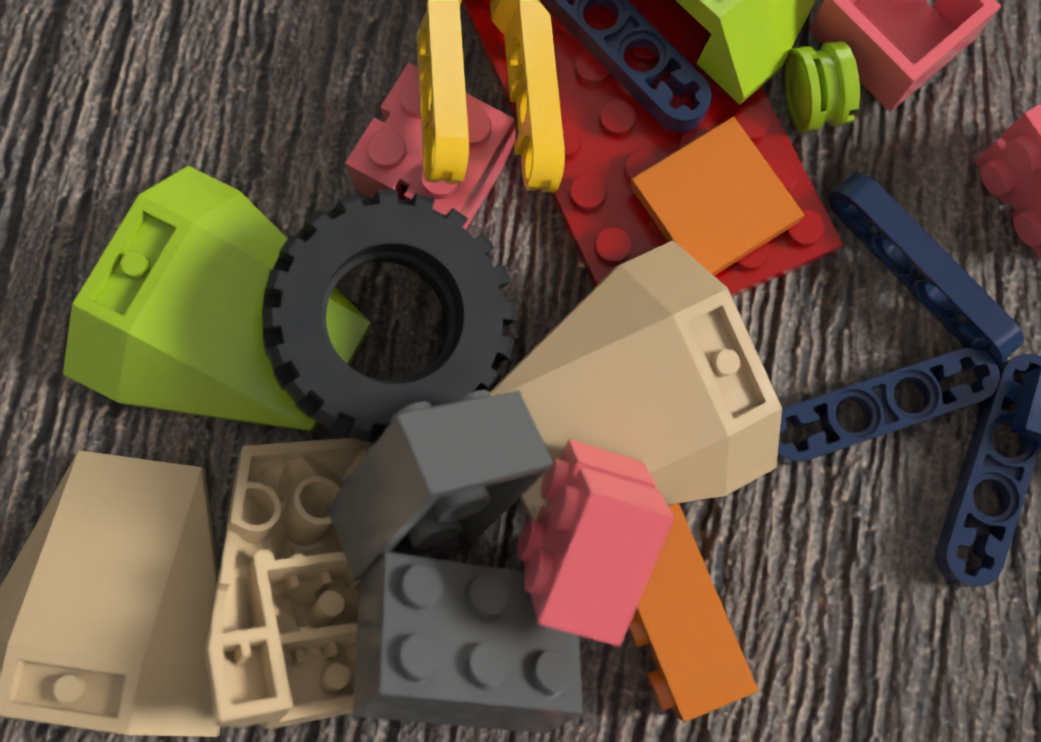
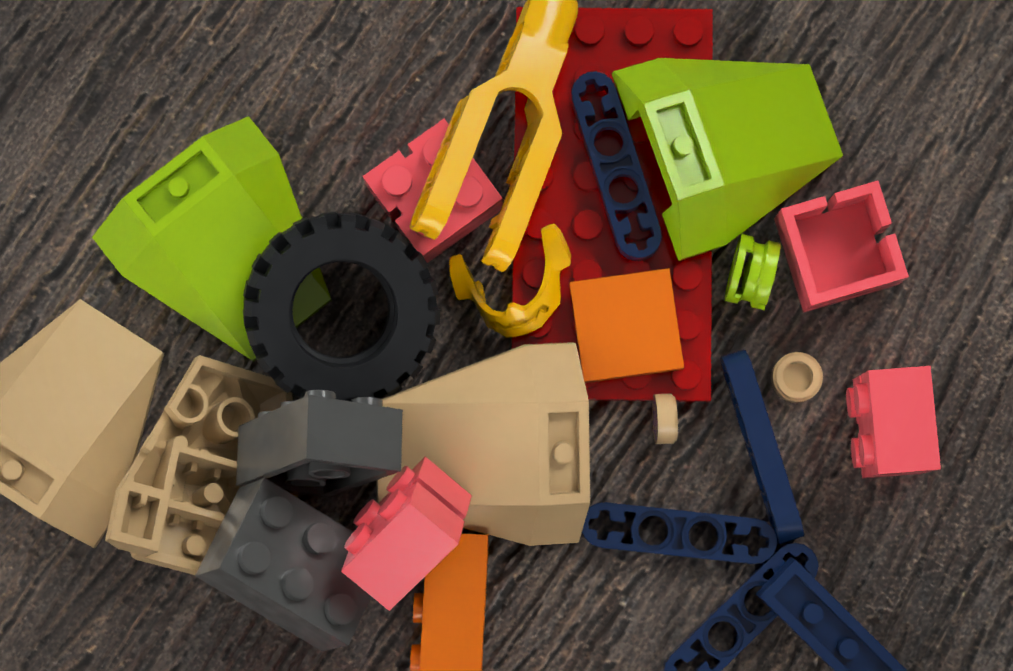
camera: 30 degrees right, 5 degrees up
(593, 243) = (518, 318): none -> yellow helmet
(805, 286) = (664, 419): none -> tan tile
(918, 182) = (796, 377): none -> tan tile

